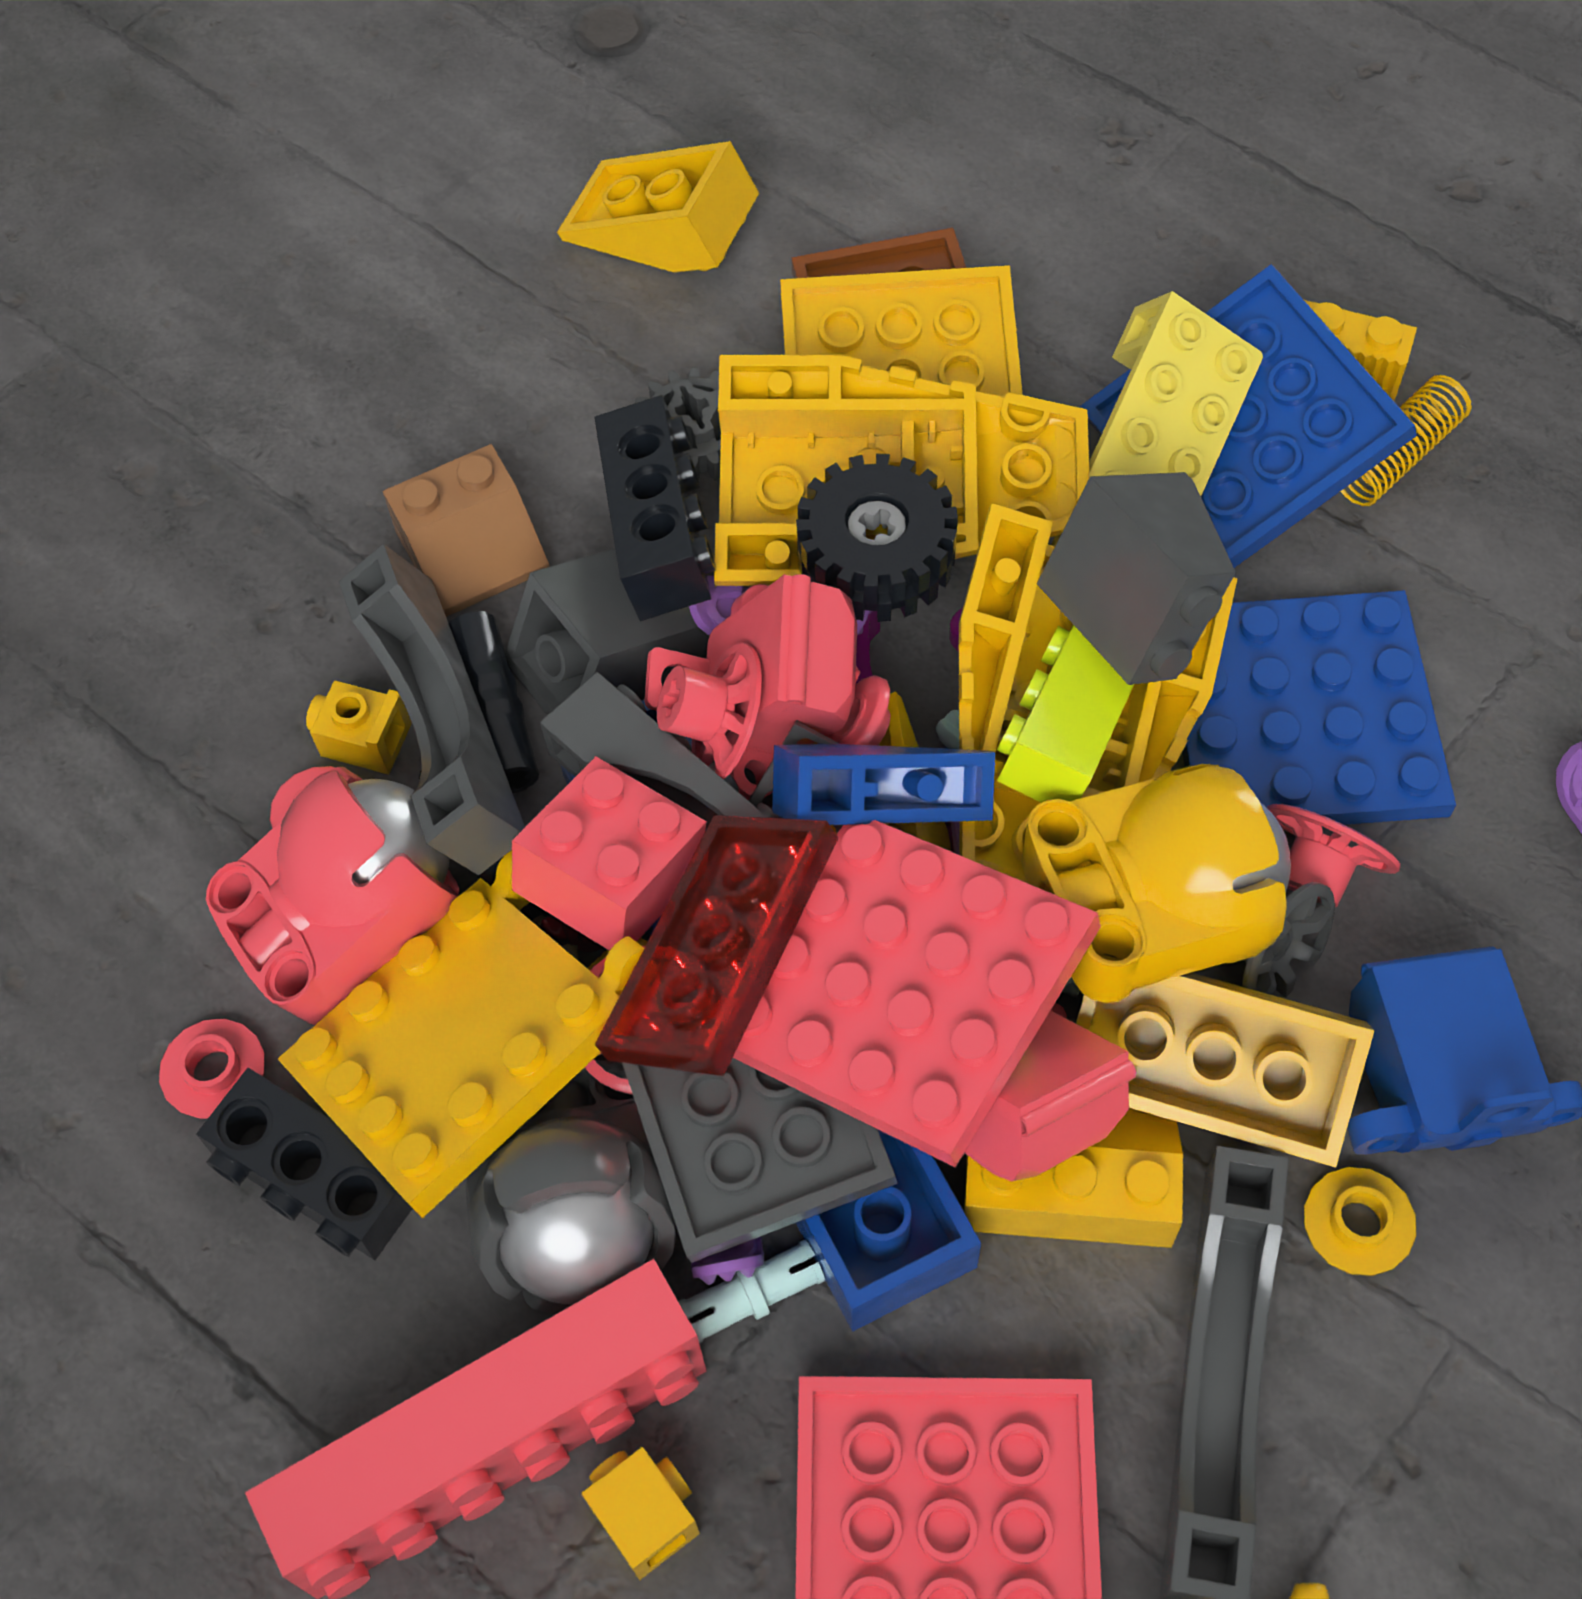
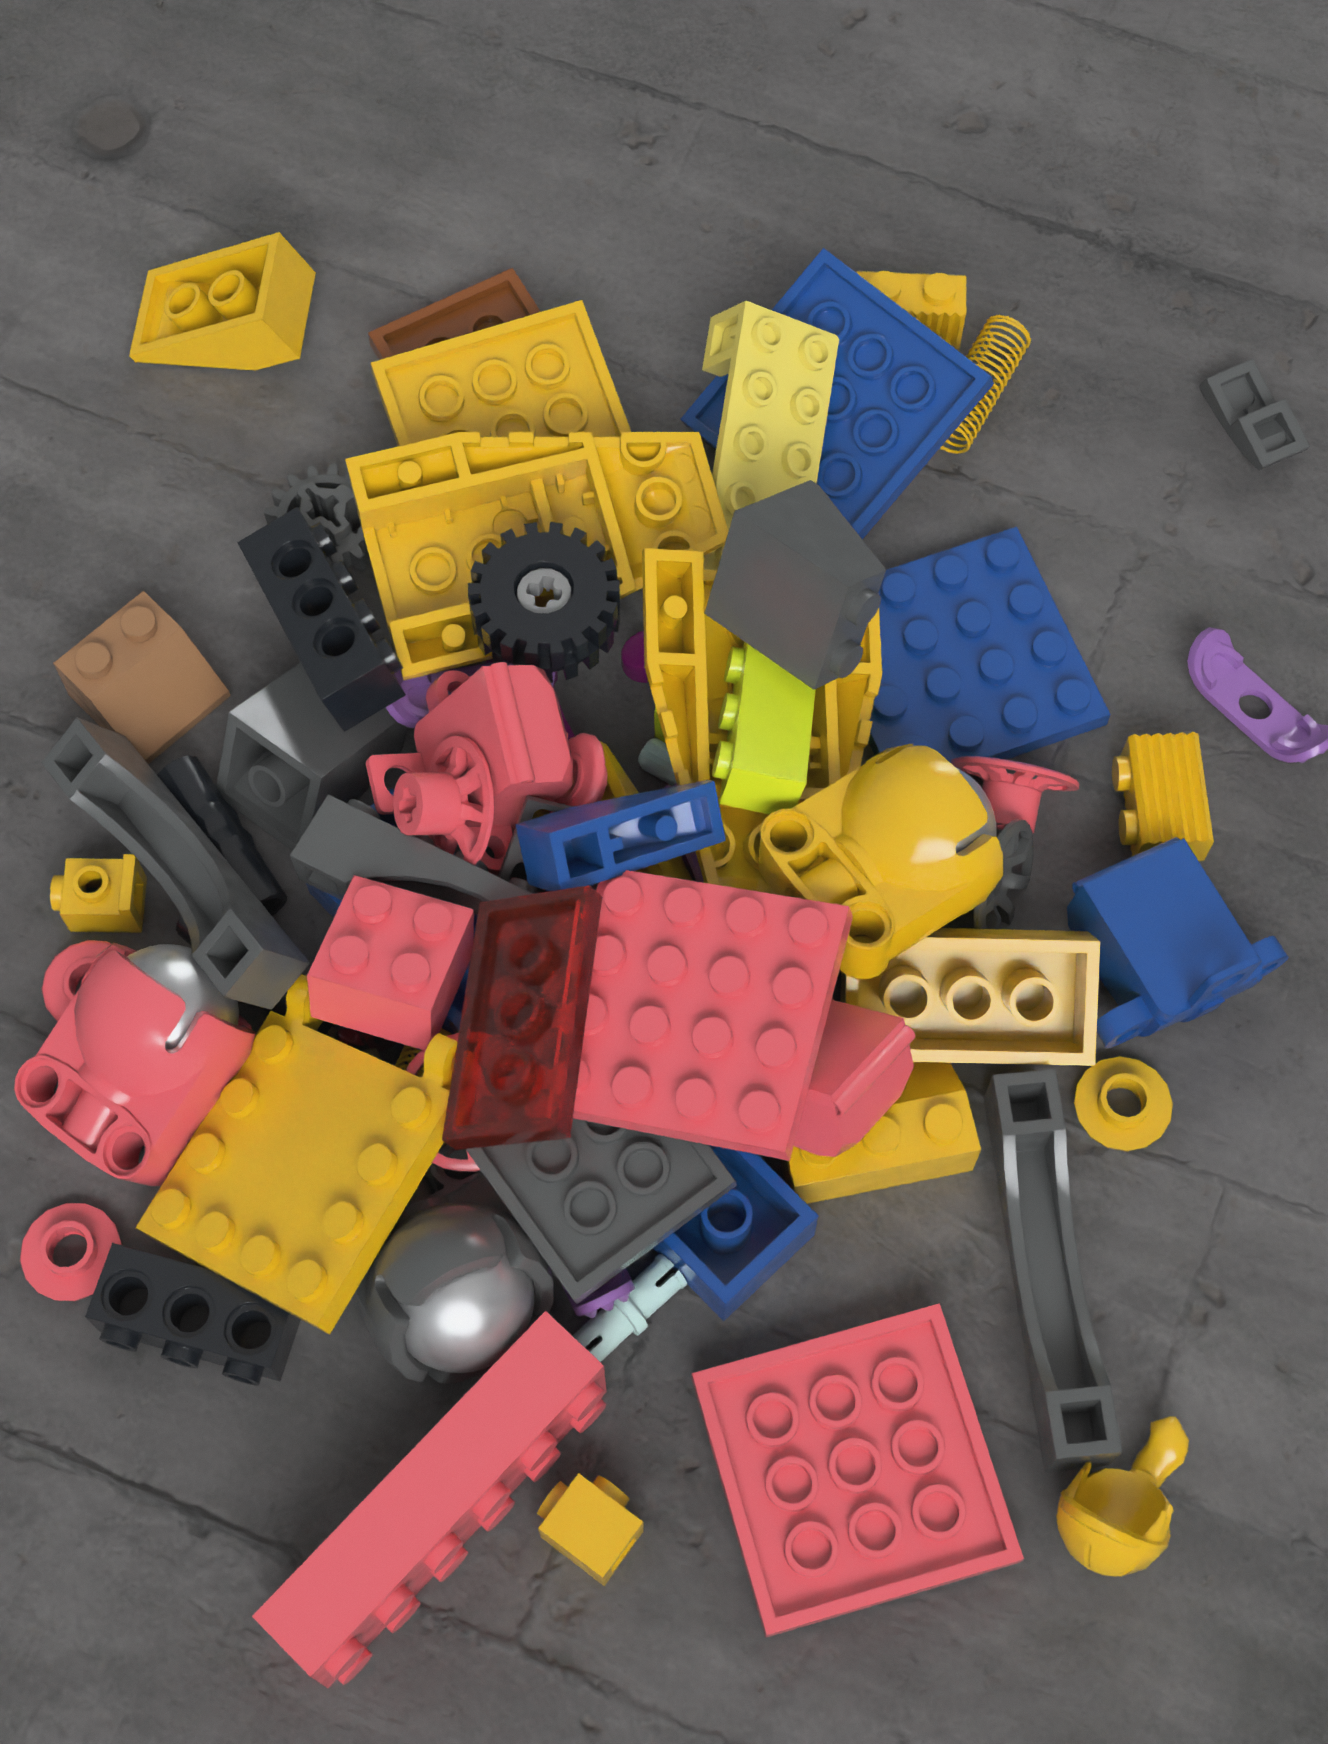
camera: 20 degrees left, 5 degrees up
(1493, 898) = (1163, 792): none -> yellow brick

